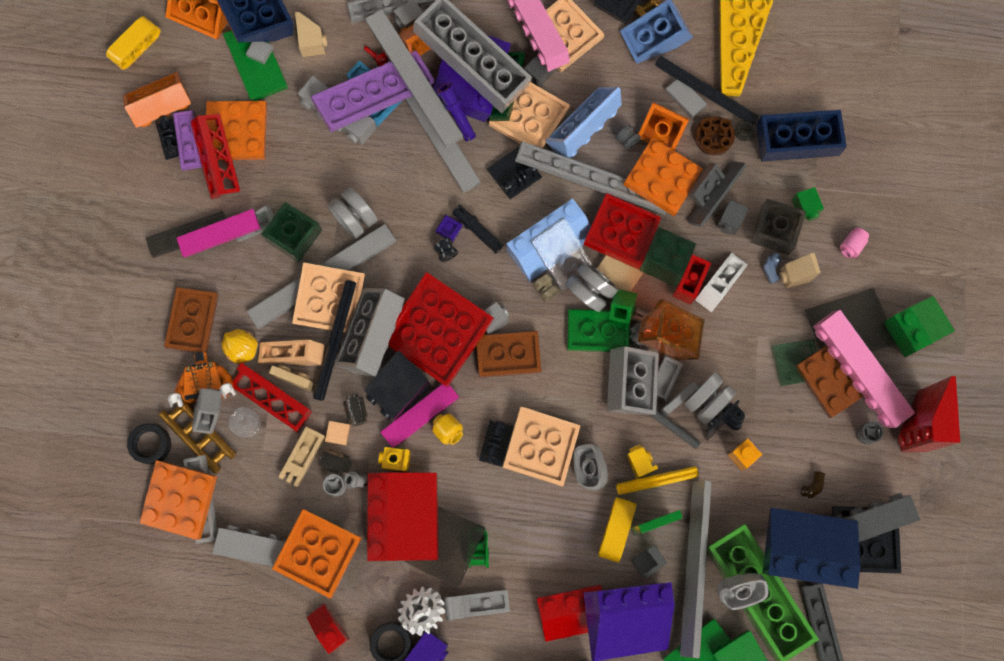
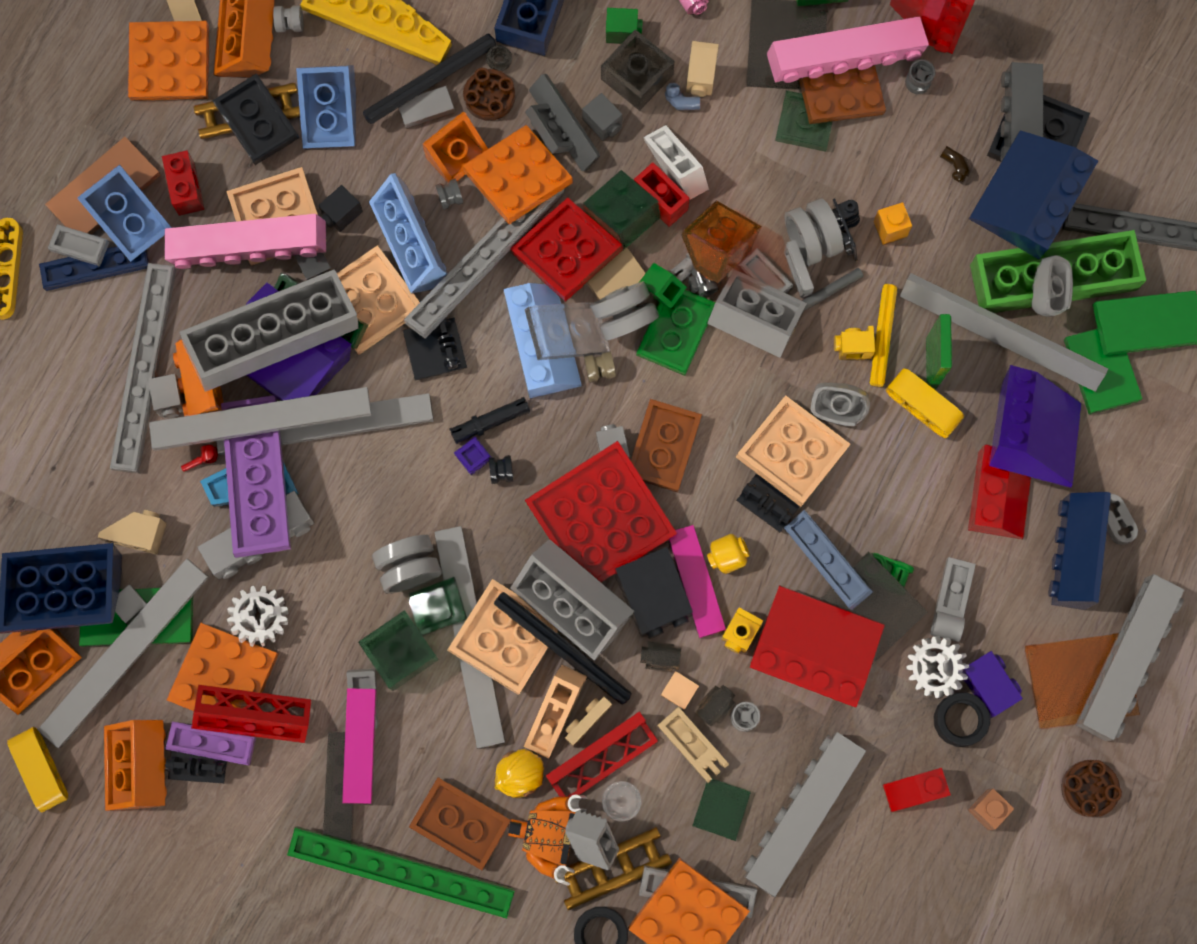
camera: 65 degrees left, 0 degrees up
(145, 296) = (401, 872): none -> green tile
(227, 62) = (123, 653): none -> light grey tile
(265, 494) = (721, 809): none -> clear green piece
(285, 126) = (246, 618): none -> white gear
(316, 553) = (825, 764): orange plate -> none
(334, 246) = (437, 606): none -> clear green piece
(355, 480) = (750, 688): light grey pin -> none
(452, 104) = (320, 382): dark purple pin -> none
(468, 501) = (828, 560): none -> sand blue tile
(585, 70) = (340, 208): none -> black brick
(649, 561) = (975, 382): dark grey panel -> none

